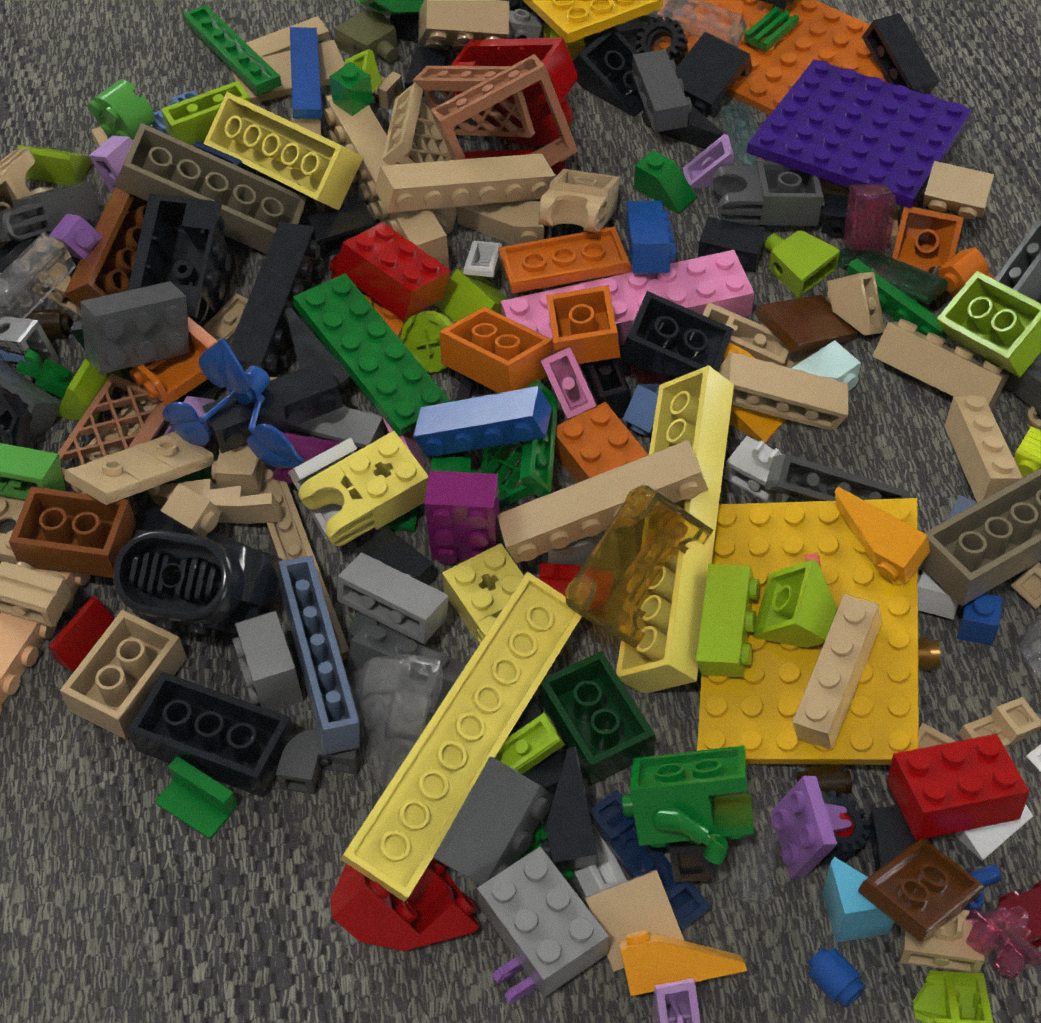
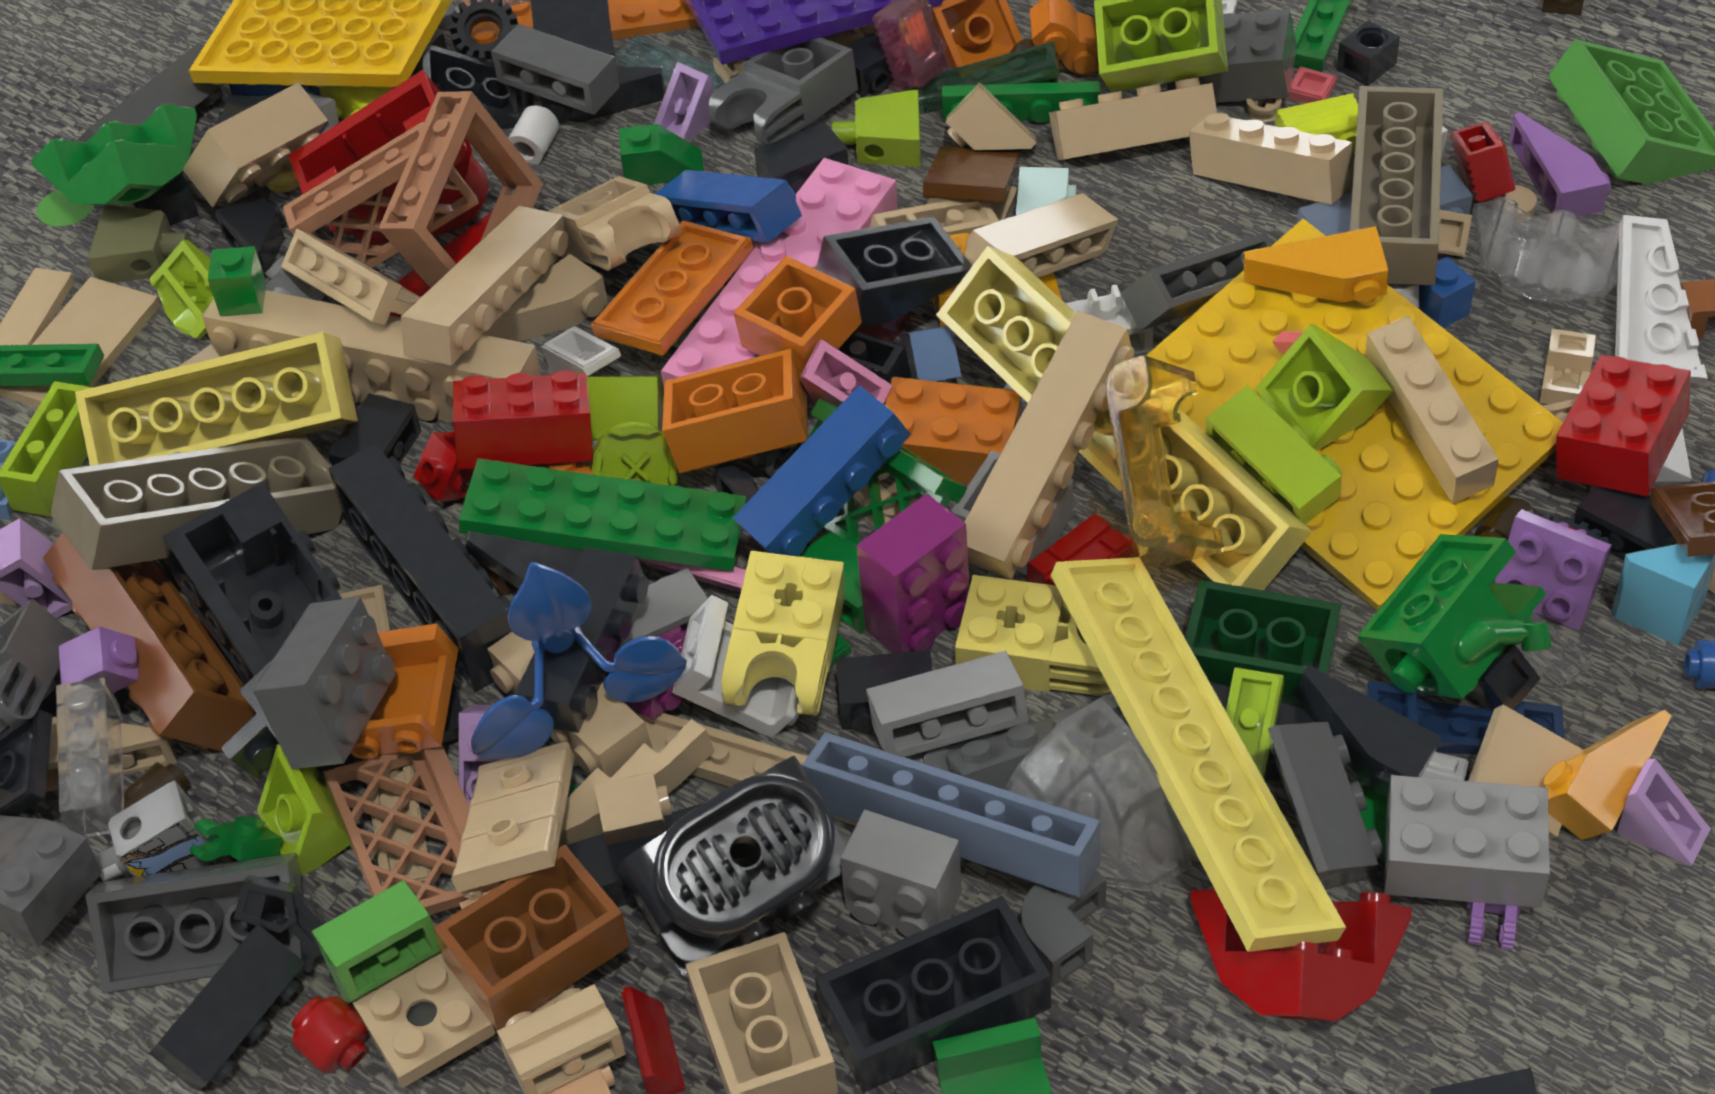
camera: 45 degrees left, 5 degrees down
(305, 73) = (125, 320): blue tile -> none
(620, 121) = (534, 133): none -> white brick

